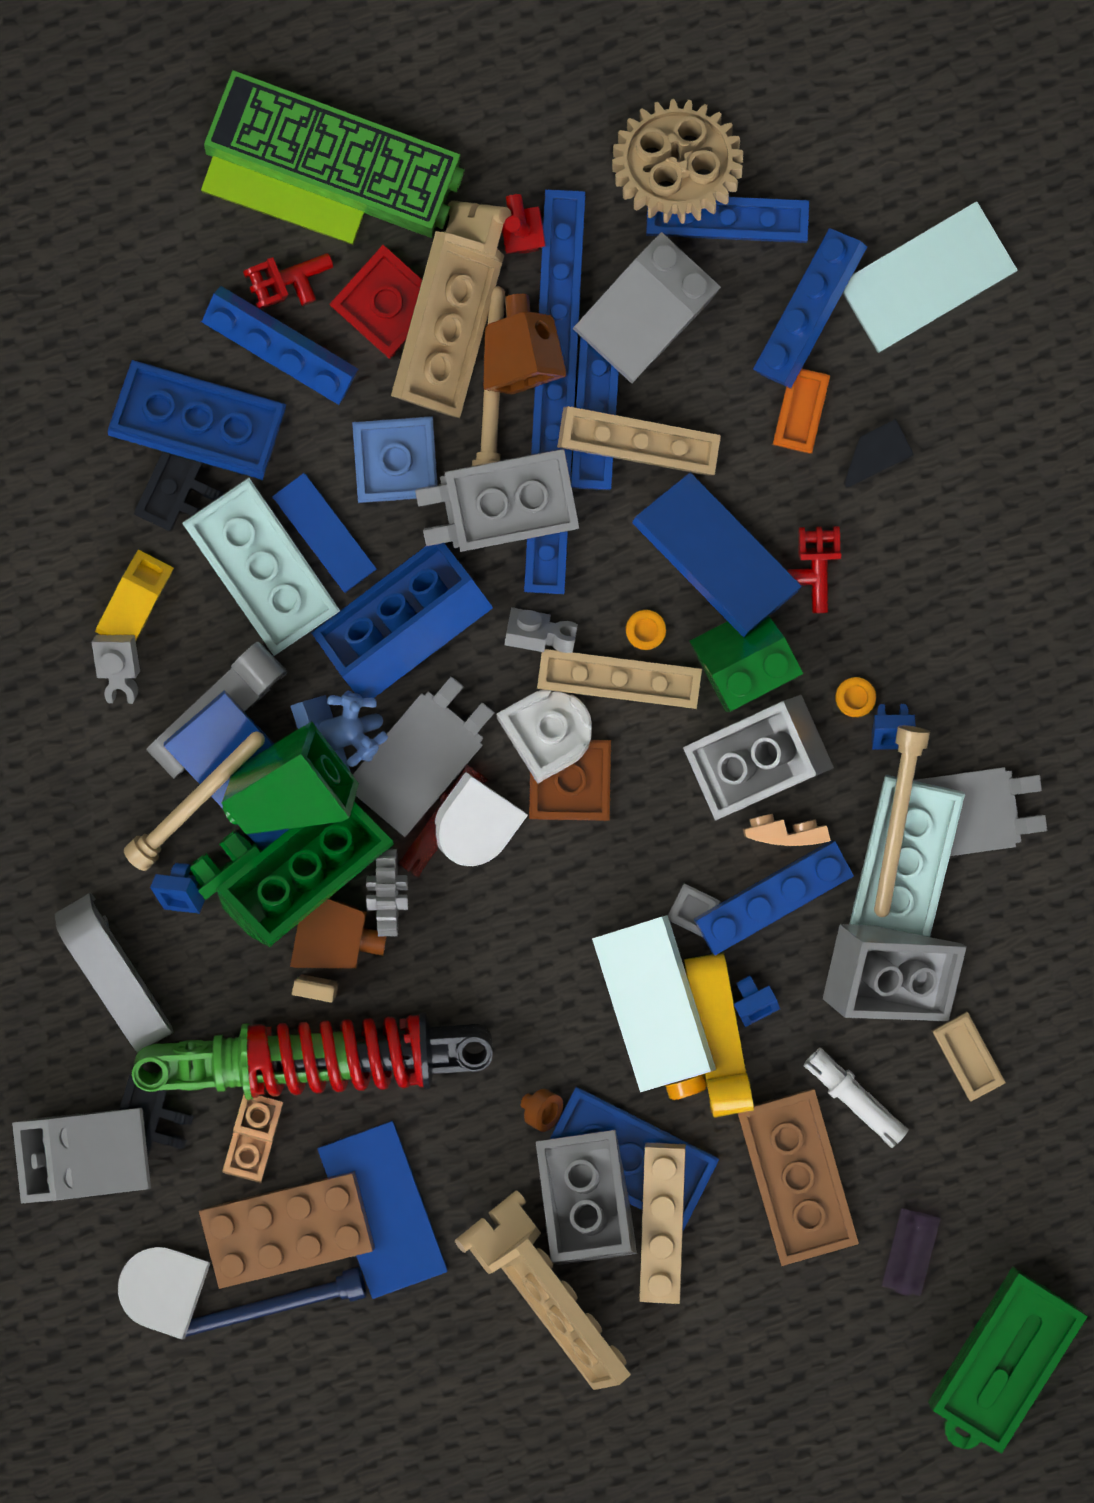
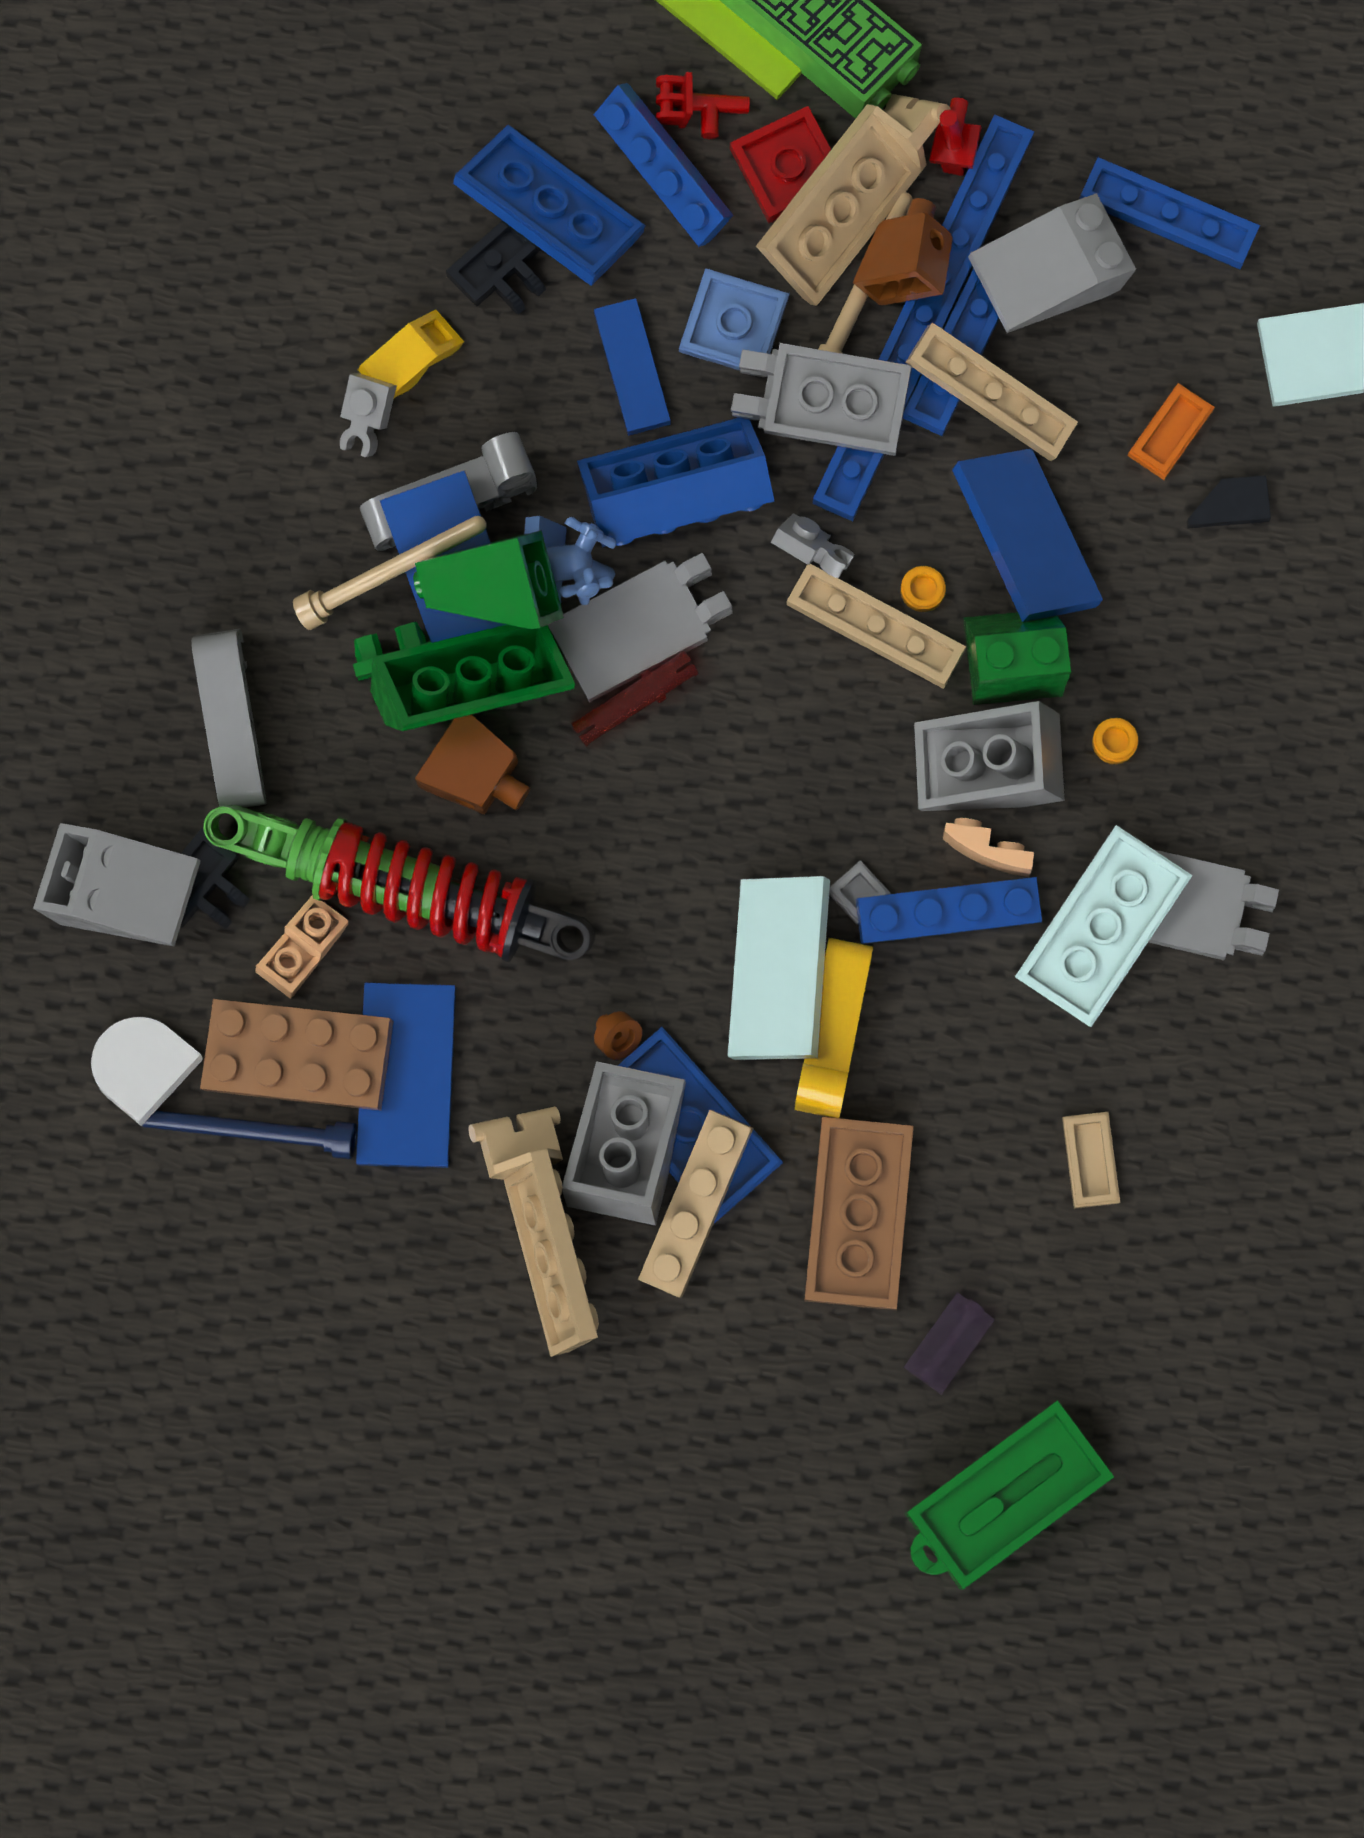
camera: 25 degrees right, 10 degrees down
(178, 890) = (331, 660): blue tile -> none
(261, 566) = (554, 372): light aqua tile -> none
(315, 988) = (431, 809): tan tile -> none
(387, 900) = (547, 741): light grey gear -> none
(475, 823) = (667, 710): white tile -> none
(548, 731) = (780, 648): white tile -> none
(576, 791) = (783, 709): dark orange tile -> none
(686, 1087) = (778, 1069): light orange tile -> none
(689, 189) = (1140, 135): tan gear -> none
(755, 1003) = (886, 1012): blue tile -> none
(810, 308) = (1219, 332): blue plate -> none
(819, 558) = (1124, 600): red arm -> none
(847, 1089) = (954, 1154): white pin -> none
(886, 727) = (1141, 787): blue tile -> none
(892, 974) = (1045, 1037): light grey slope -> none
(911, 744) = (1155, 797): tan piece -> none

